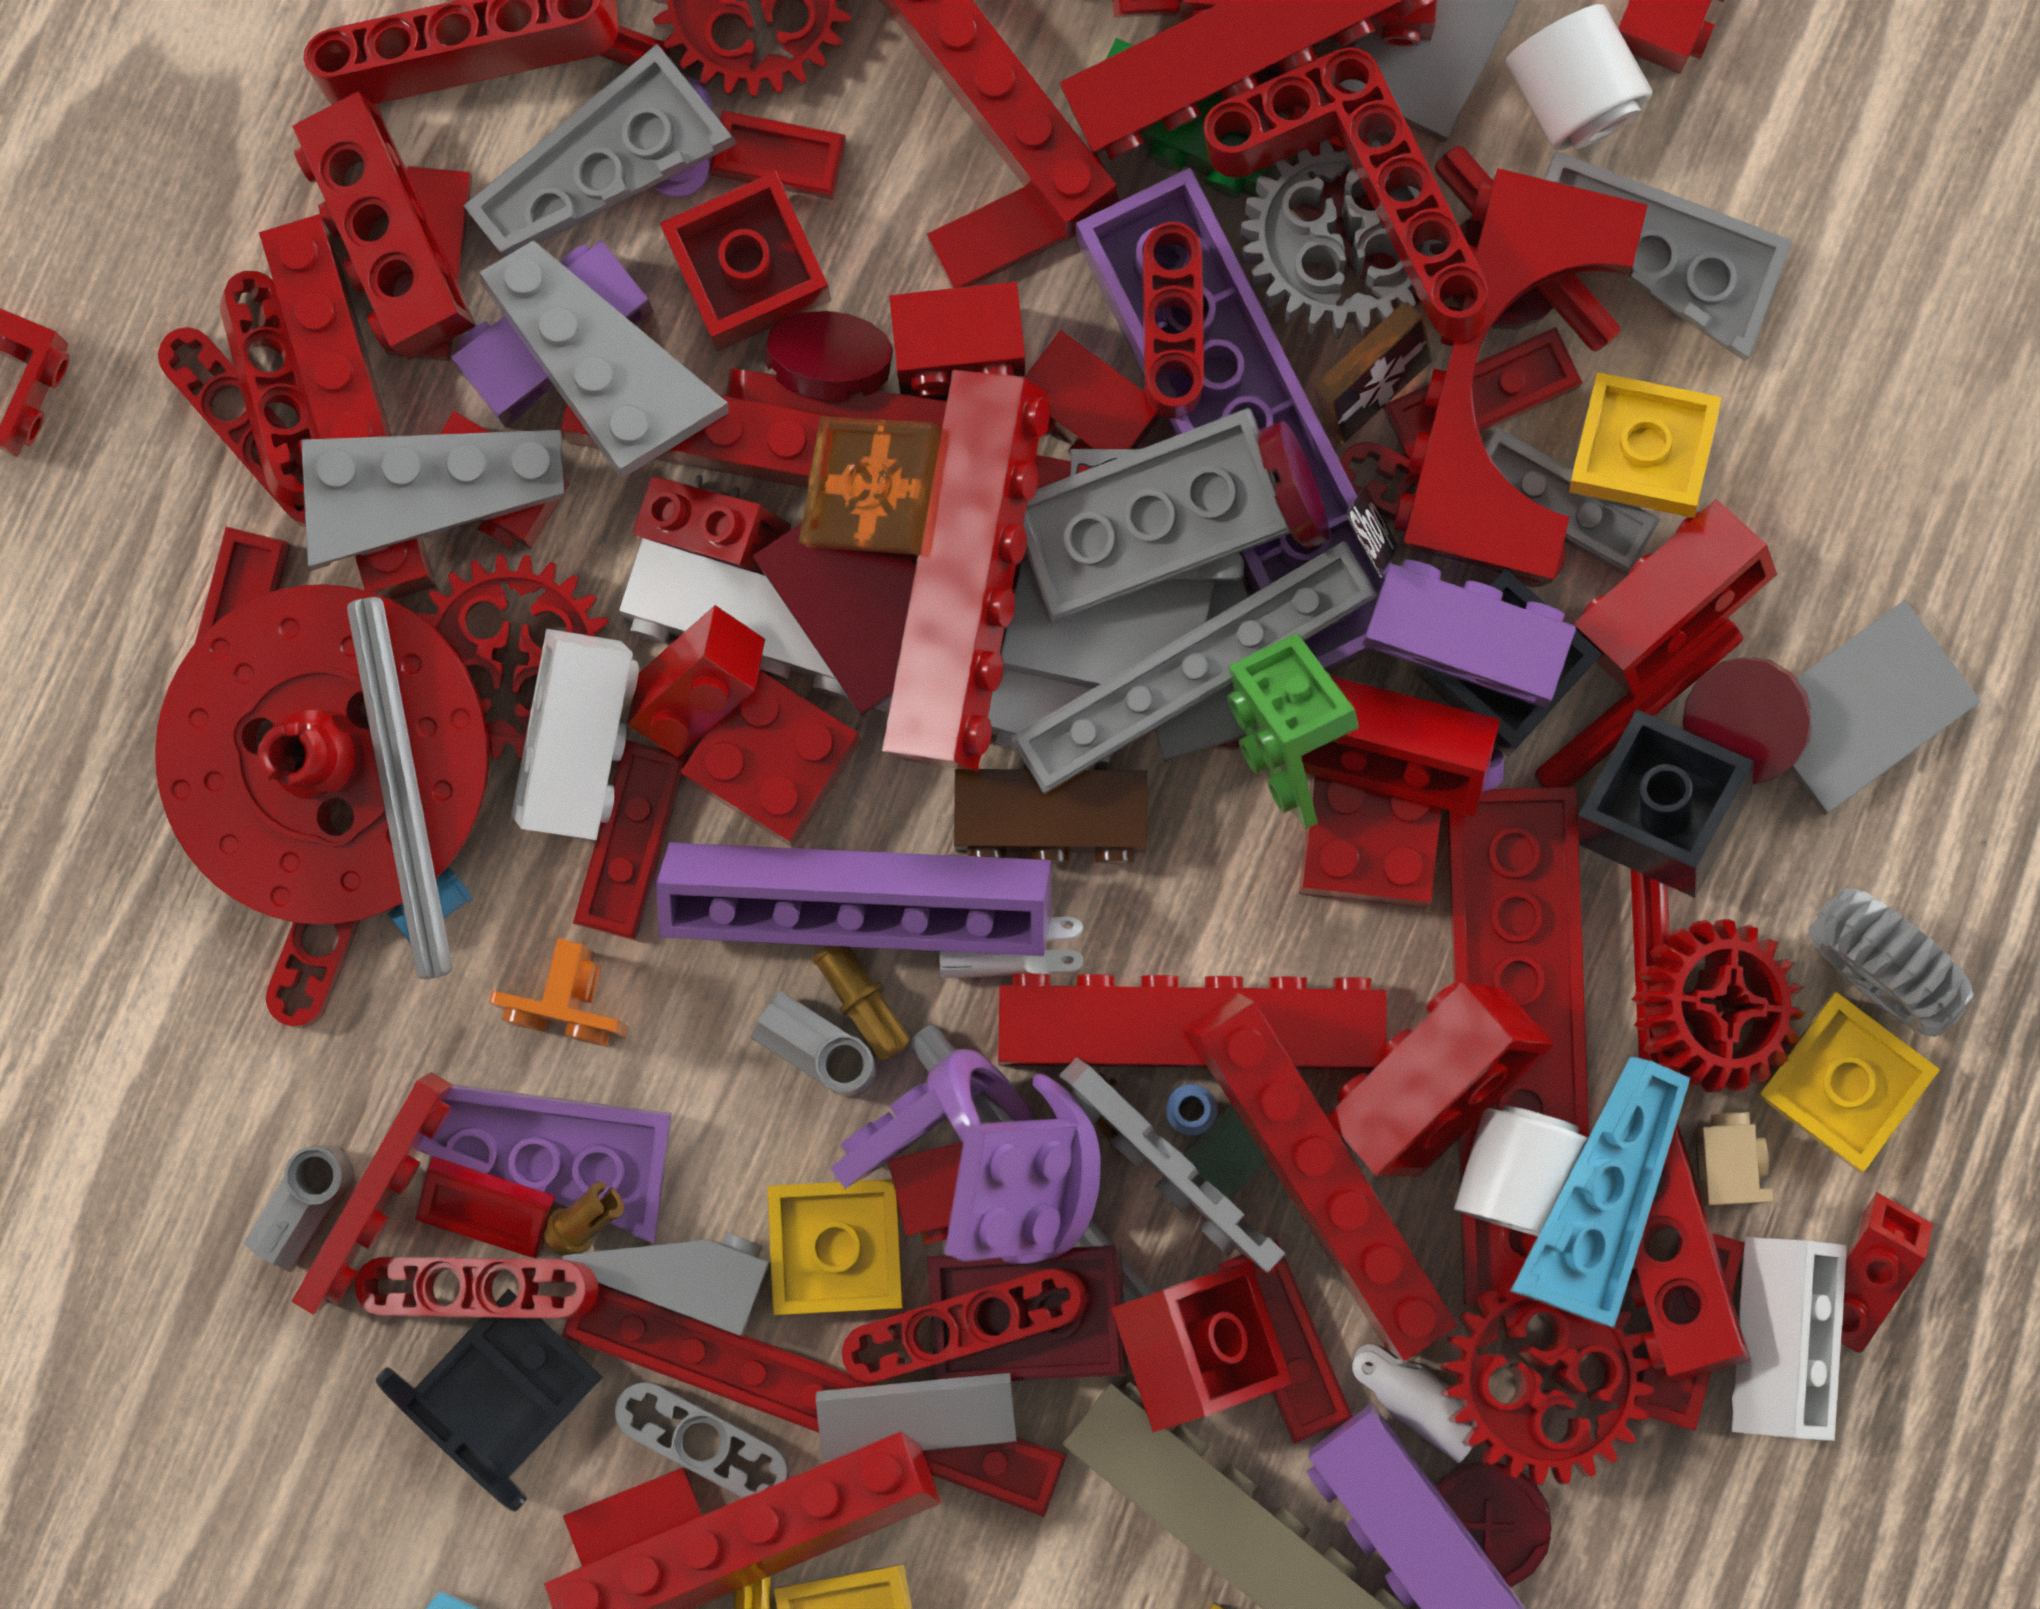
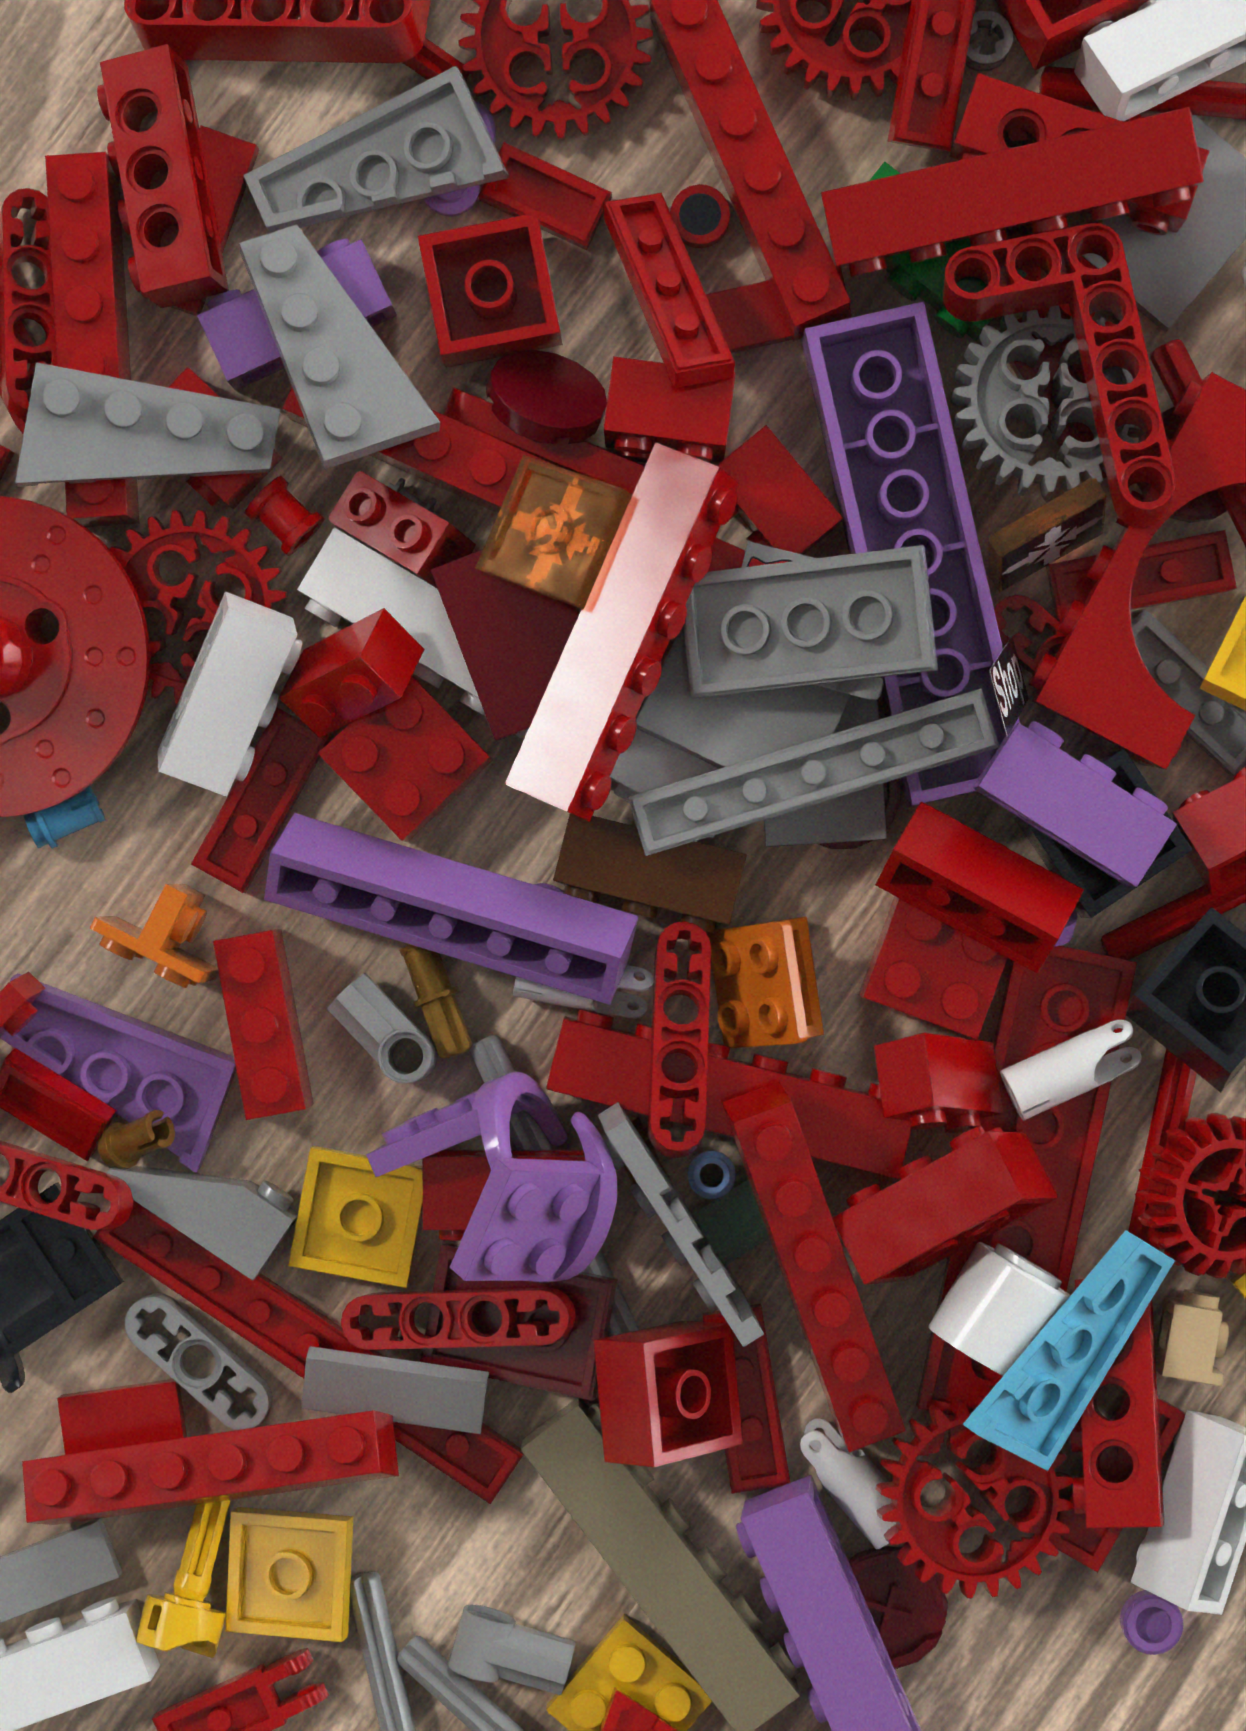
camera: 15 degrees right, 5 degrees up
(399, 787) = (55, 706): light grey axle -> none
(586, 541) = (284, 515): none -> red bush
(687, 1067) = (263, 1024): none -> red brick
(928, 217) = (668, 290): none -> red tile
(941, 138) = (700, 215): none -> tile
(1129, 974) = (674, 1038): none -> red beam
(1173, 289) = (883, 415): red beam -> none
(1198, 901) = (766, 983): none -> orange bracket
(1287, 711) = (888, 842): bright green bracket -> none
(1296, 487) = (949, 632): dark red tile -> none
(1400, 952) = (938, 1081): none -> red brick
(1532, 911) = (1069, 1069): none -> white piece
(1766, 1473) = (1151, 1623): none -> medium lavender tile

